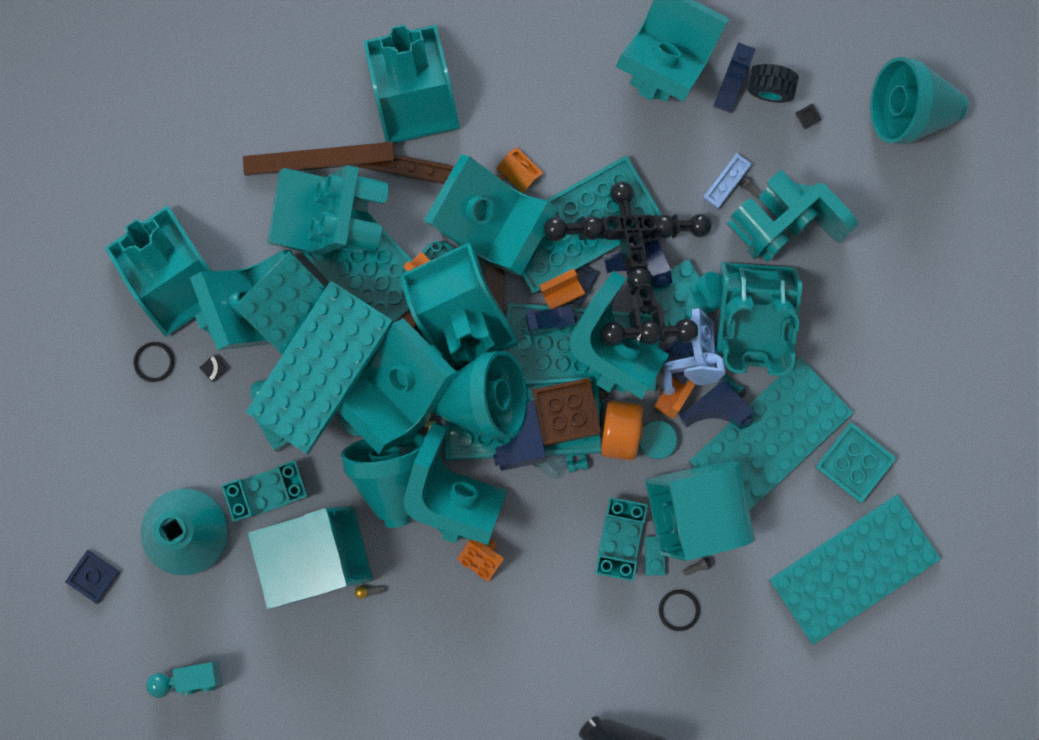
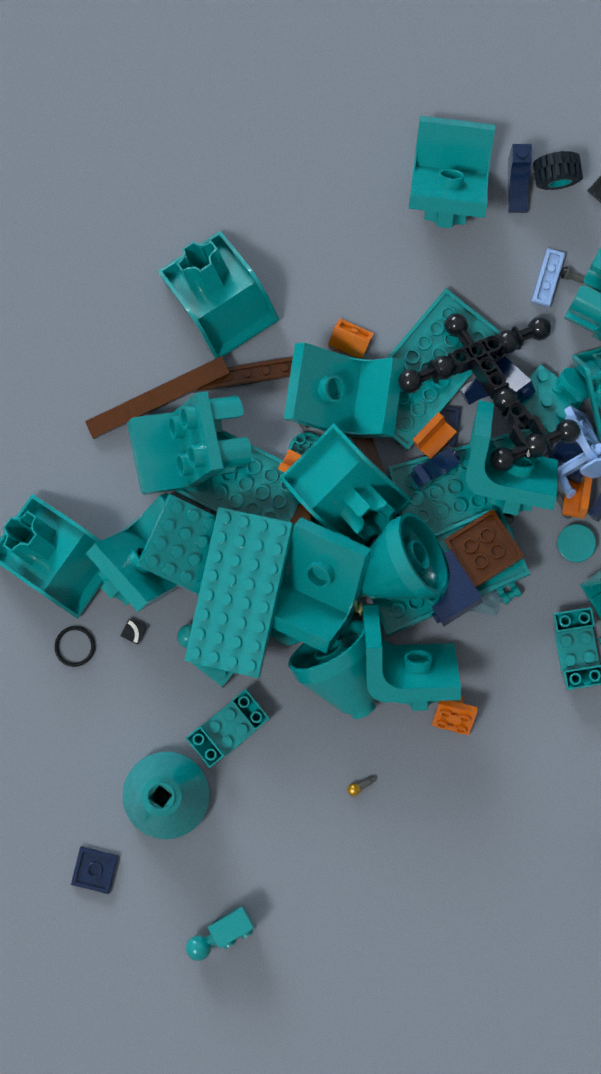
camera: 15 degrees left, 0 degrees up
(310, 556) = (295, 774): piece -> none
(622, 430) = (541, 546): orange wheel -> none

